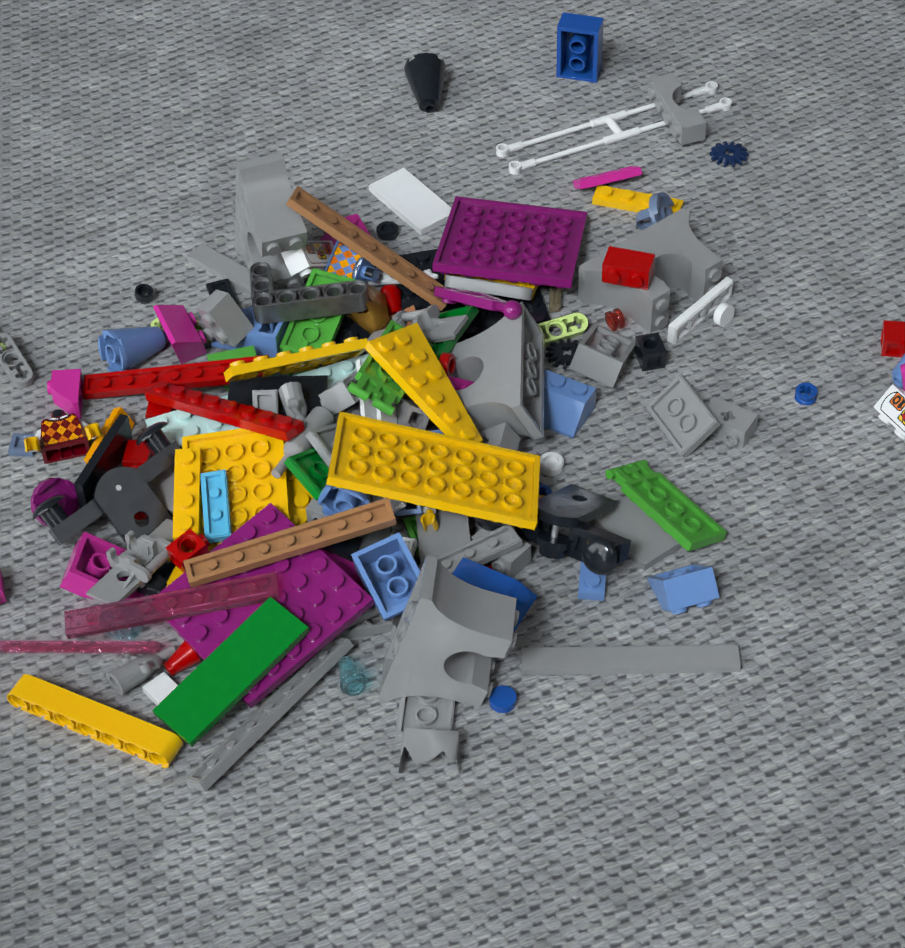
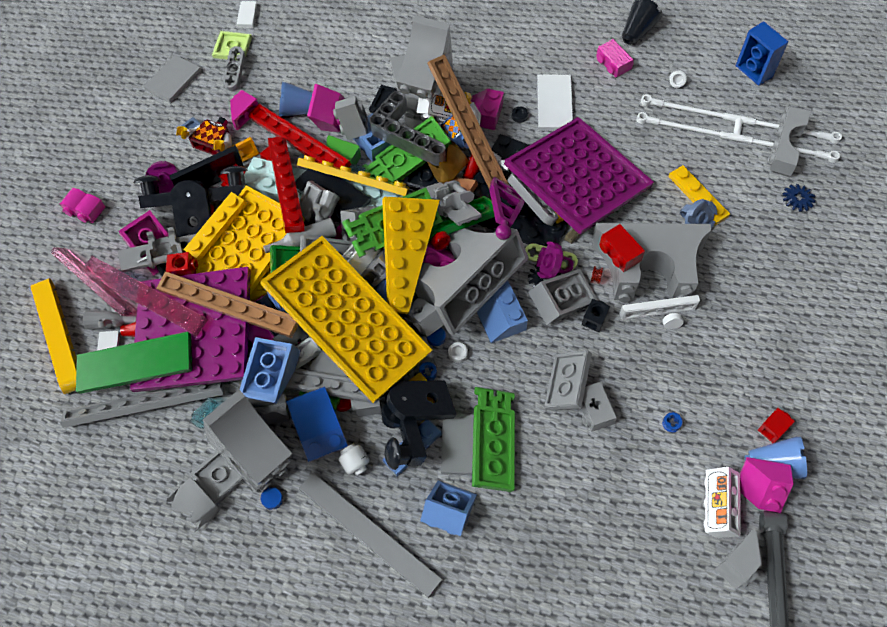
camera: 40 degrees right, 15 degrees up
(140, 291) = (341, 66): black hinge -> none
(216, 505) = (222, 245): medium azure tile -> none
(433, 129) = (614, 58): none -> dark pink brick
(515, 115) = (677, 79): none -> white tile
(551, 608) = (354, 459): none -> white head
(565, 326) = (550, 261): none -> magenta tile
(607, 177) = (694, 163): dark pink tile -> none

